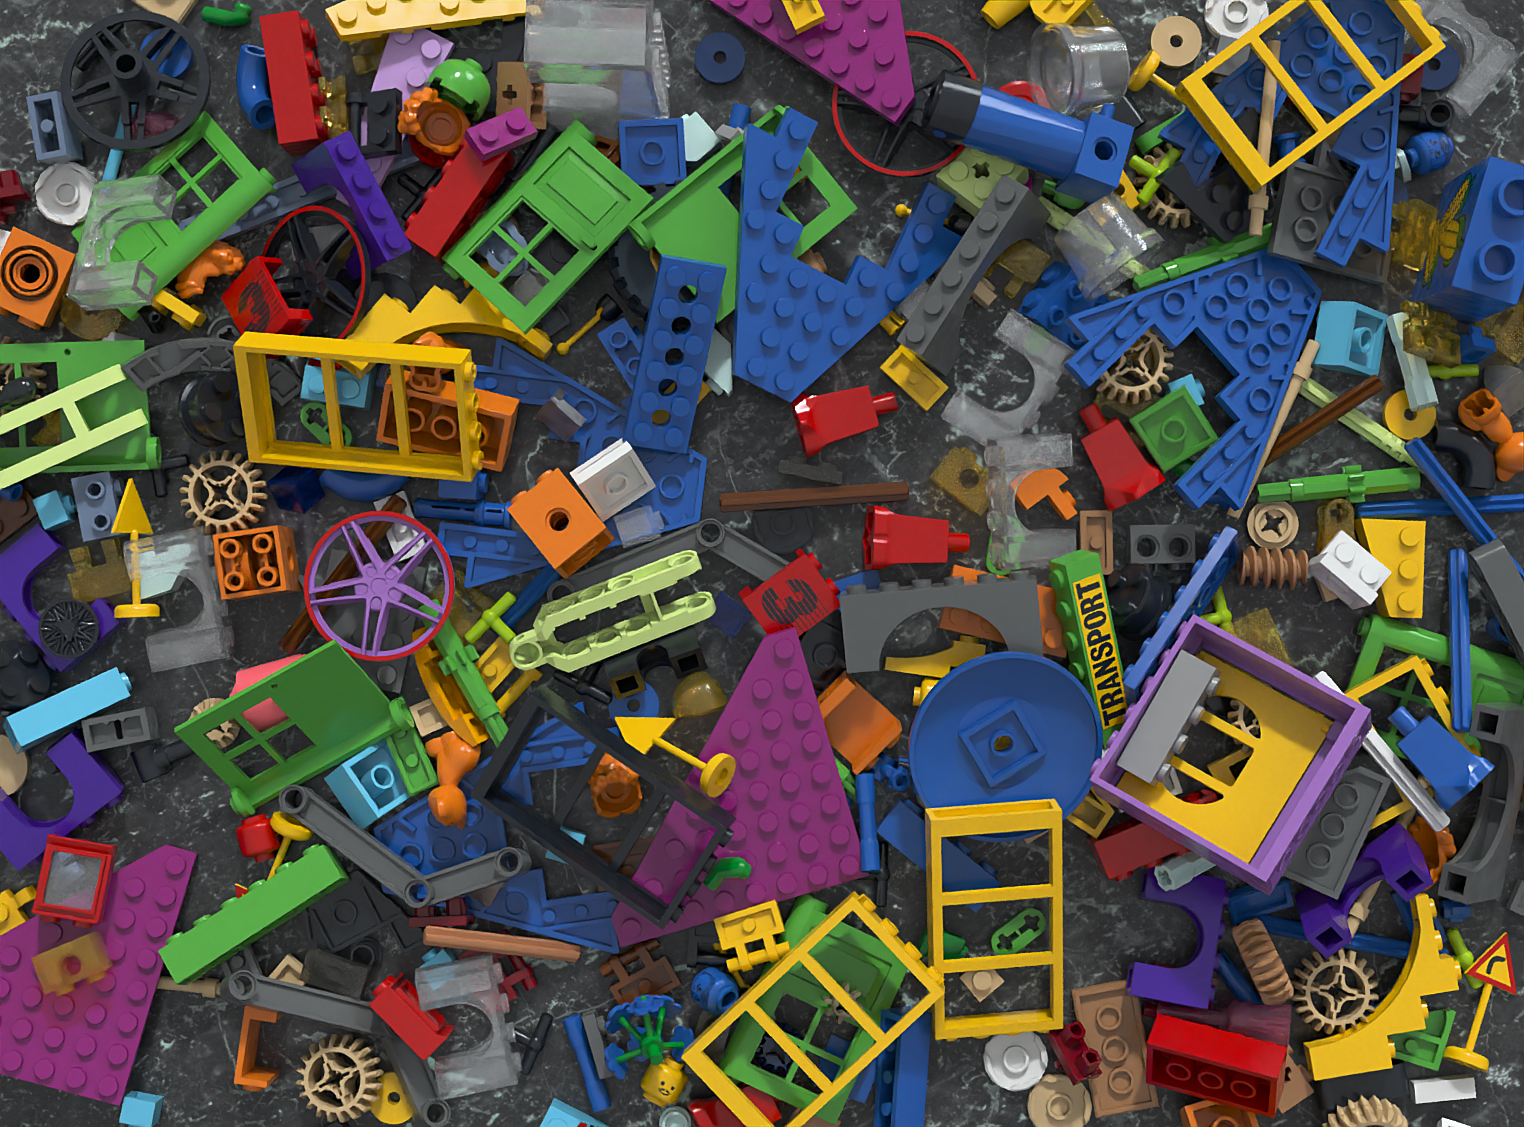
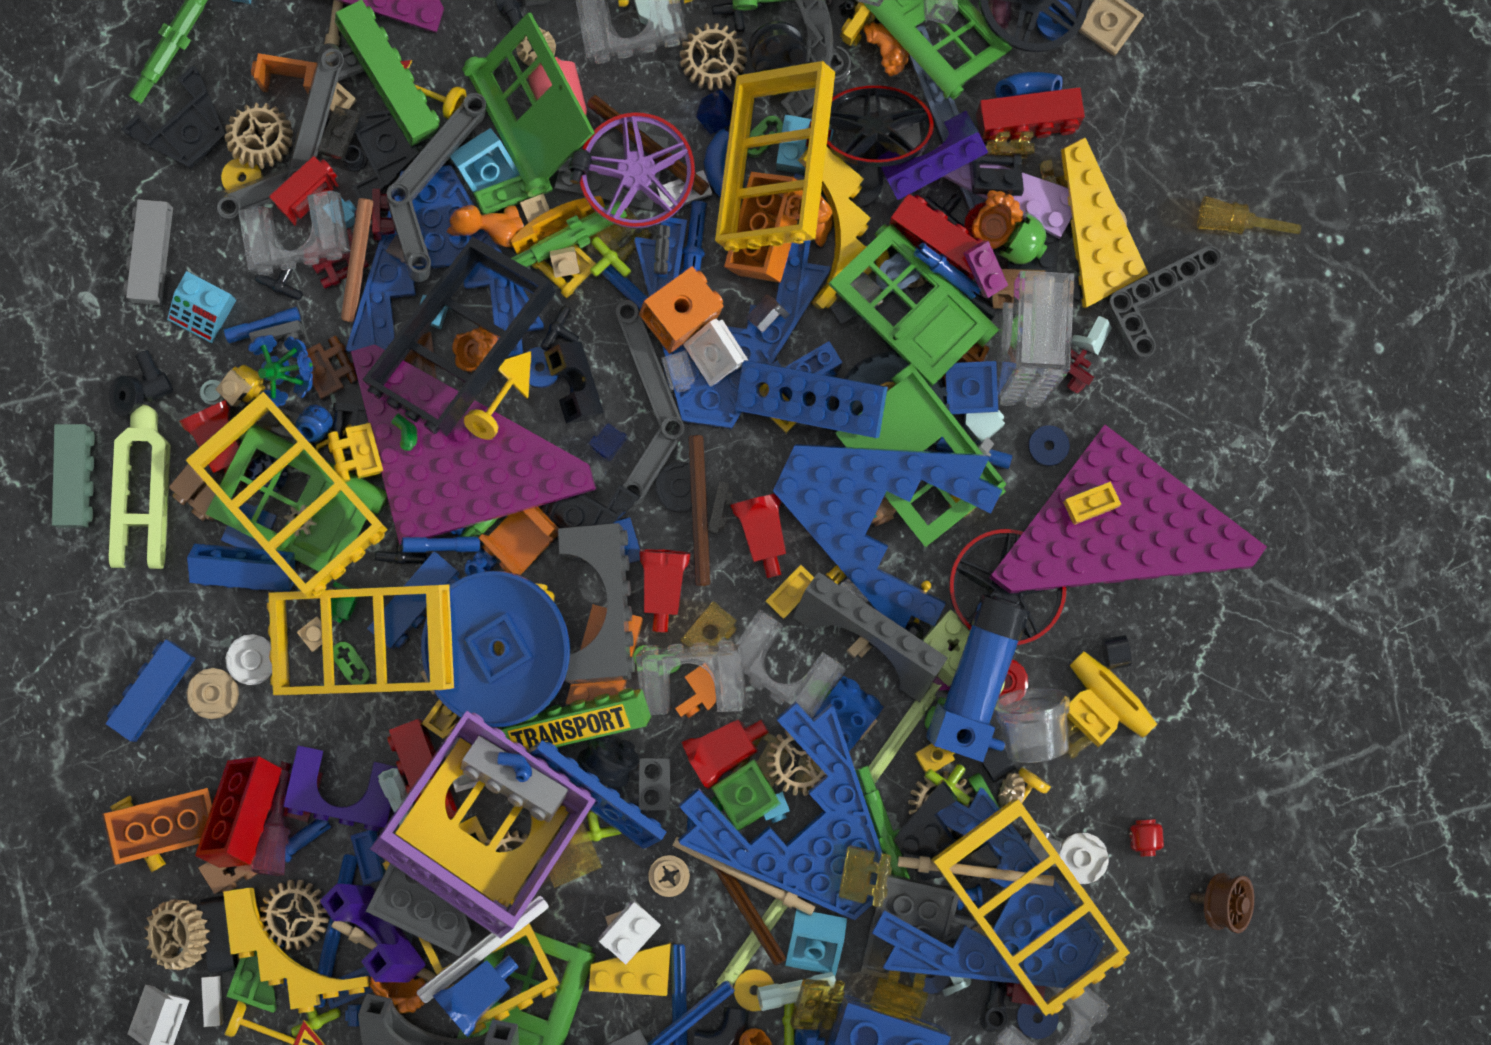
camera: 85 degrees right, 5 degrees down
(222, 17) = (1083, 66): green arm -> none
(256, 562) = (657, 79): orange brick -> none
(257, 838) = (445, 77): red head -> none
(258, 304) = (856, 83): red panel -> none
(375, 658) = (579, 165): none -> black cylinder
(465, 490) = (710, 246): blue brick -> none
(480, 552) = (662, 249): none -> dark grey axle
(495, 194) = (939, 265): none -> blue pin
(499, 676) = (564, 262): none -> tan plate
(541, 645) = (588, 295): yellowish green piece -> none
(605, 309) = (851, 352): hinge -> none
(673, 1096) = (233, 388): none -> tan plate
(698, 696) = (545, 415): clear yellow hat -> none
(719, 365) = (806, 435): light aqua slope -> none
(793, 596) = (619, 489): red panel -> none
(938, 663) = (565, 604): yellow slope -> none
(1024, 261) = (884, 681): clear yellow plate -> none
(1073, 1053) = (253, 703): dark red hips -> none
(1097, 536) = (659, 733): medium nougat plate -> none
(1107, 245) = (891, 741): clear piece -> none
(1118, 1035) = (263, 734): medium nougat tile -> none
(1148, 101) = (1011, 788): none -> tan gear
(1153, 711) = (518, 763): none -> blue arm
(1179, 28) = (1046, 808): tan piece -> none
(1262, 962) = (318, 854): medium nougat gear -> none
(1272, 286) = (857, 876): none -> clear yellow plate
(1272, 566) = (633, 873): medium nougat piece -> none
(1329, 525) = (664, 930): clear yellow piece -> none
(1350, 484) = (698, 937): bright green piece -> none
(1428, 151) = (966, 1009): blue head -> none
(1459, 641) = (569, 1020): blue axle -> none

